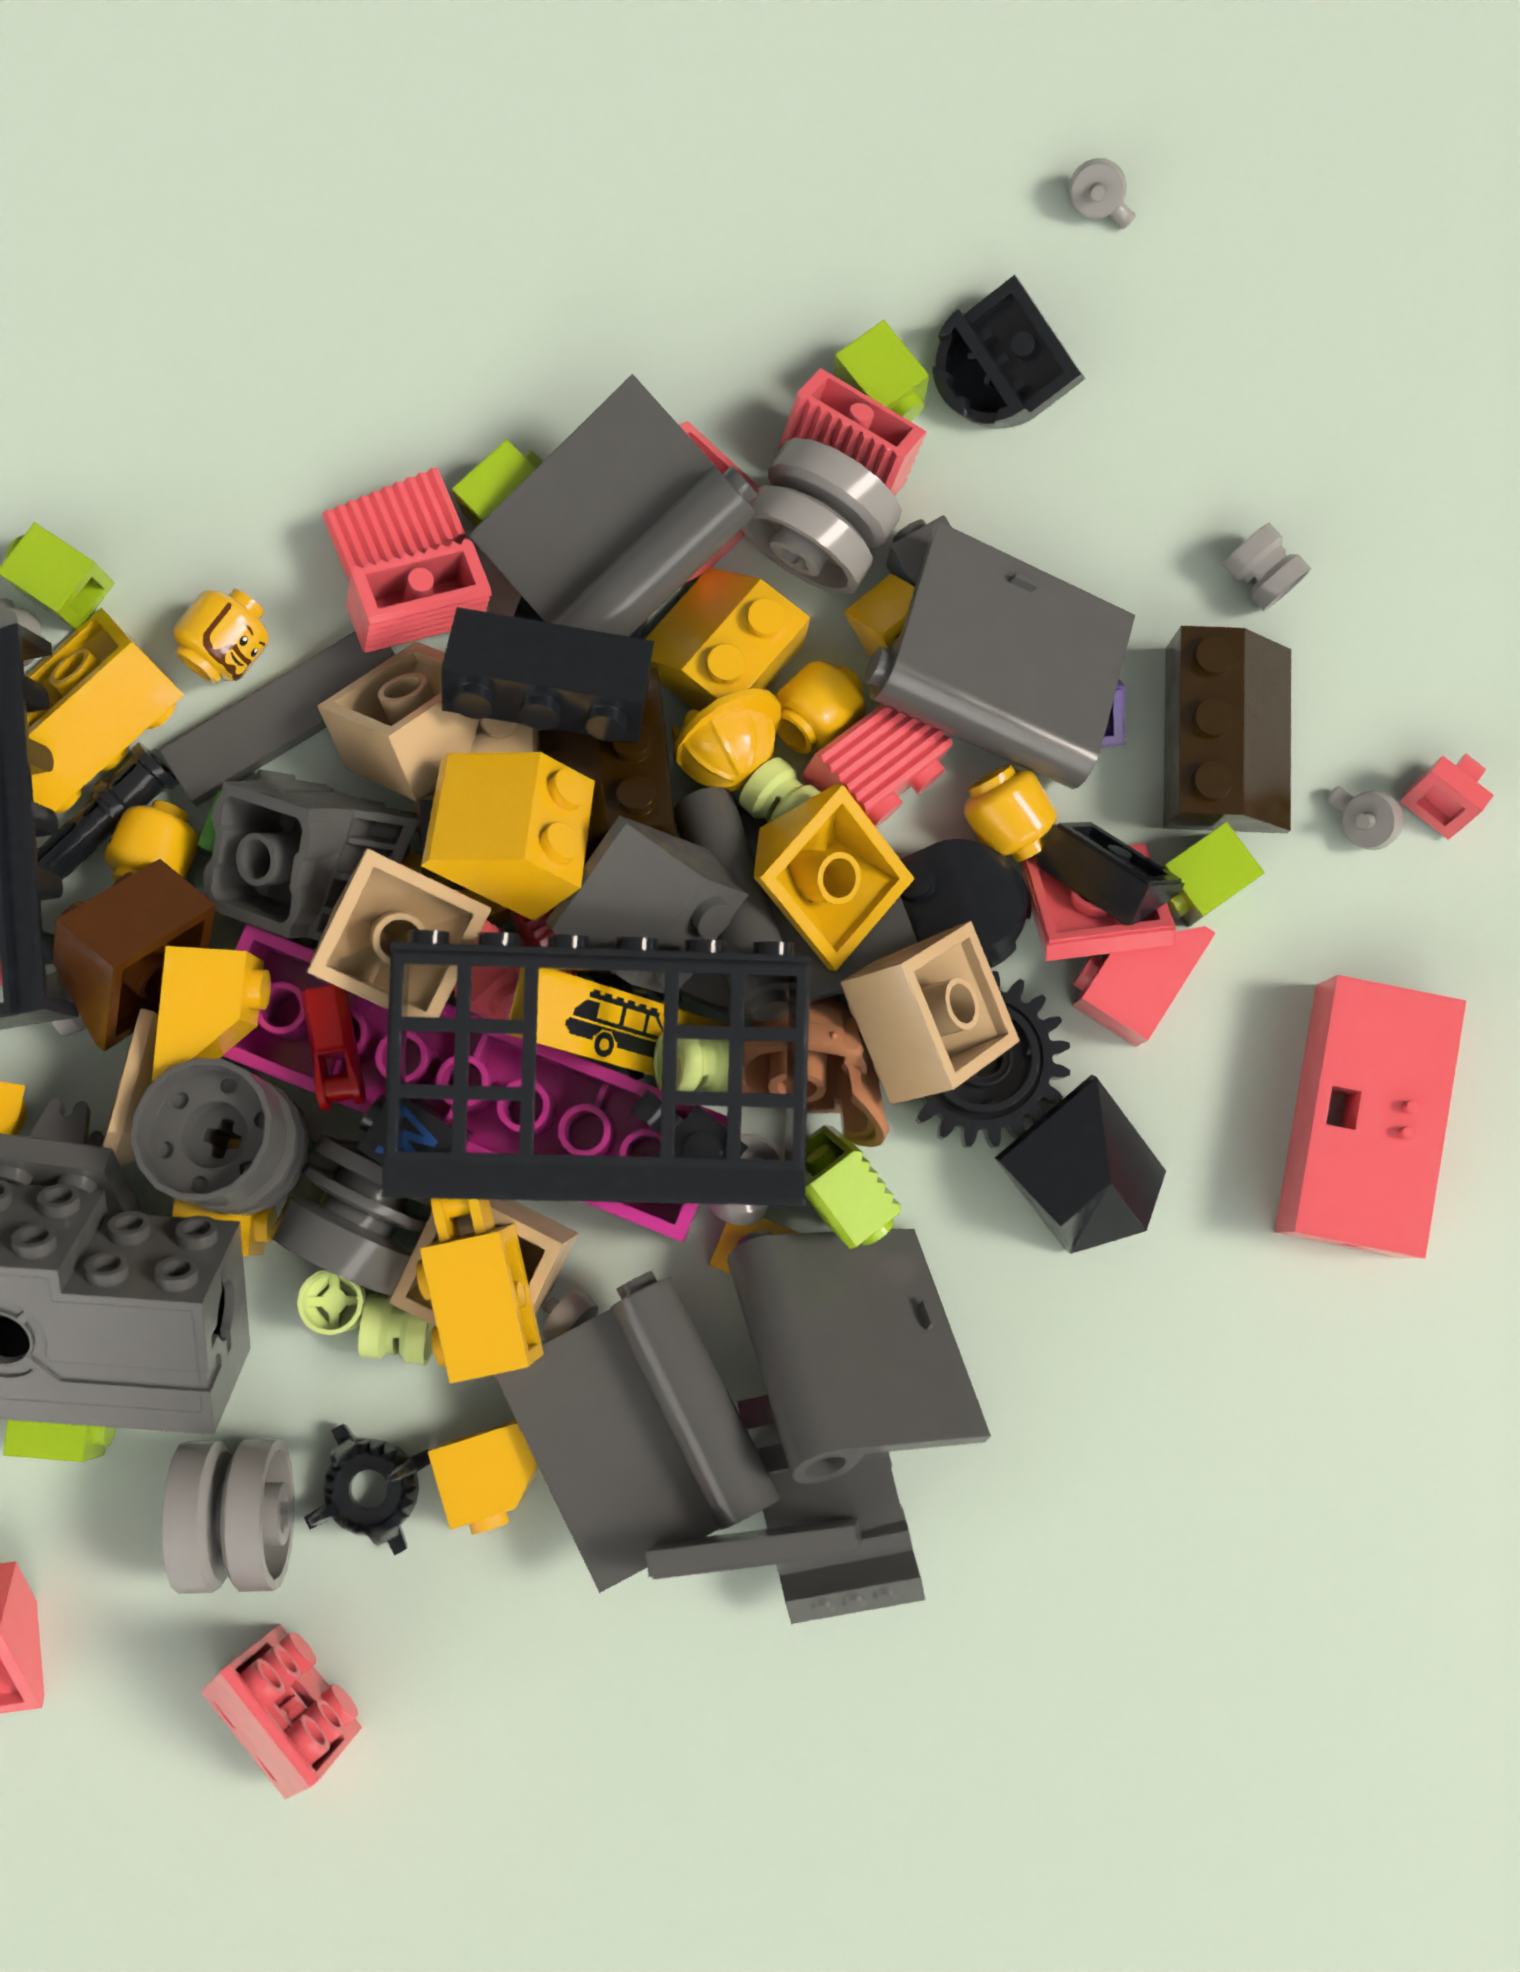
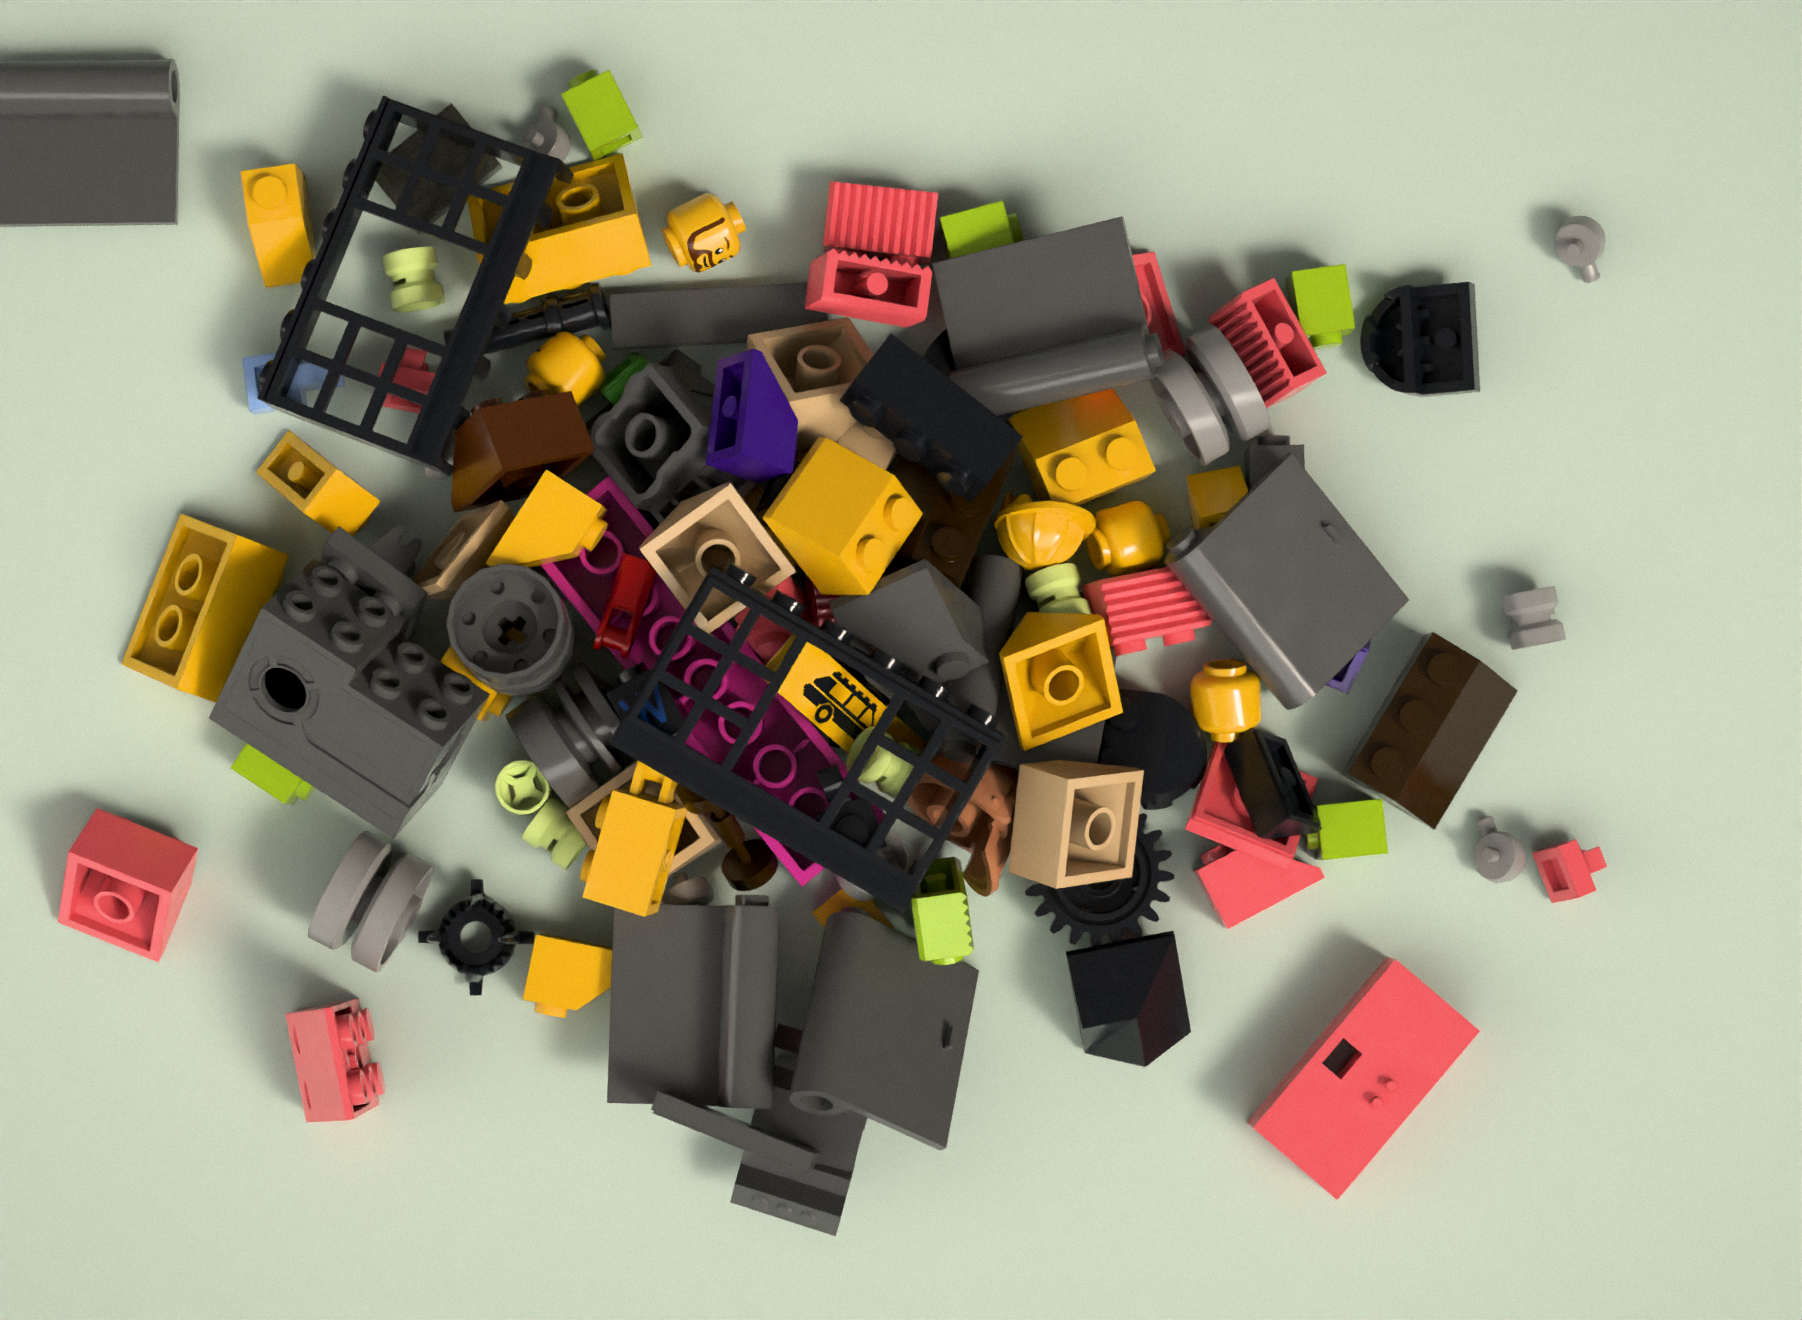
camera: 30 degrees right, 5 degrees up
(359, 778) = (751, 420): none -> dark purple slope
(613, 1251) = (748, 862): none -> dark brown wheel

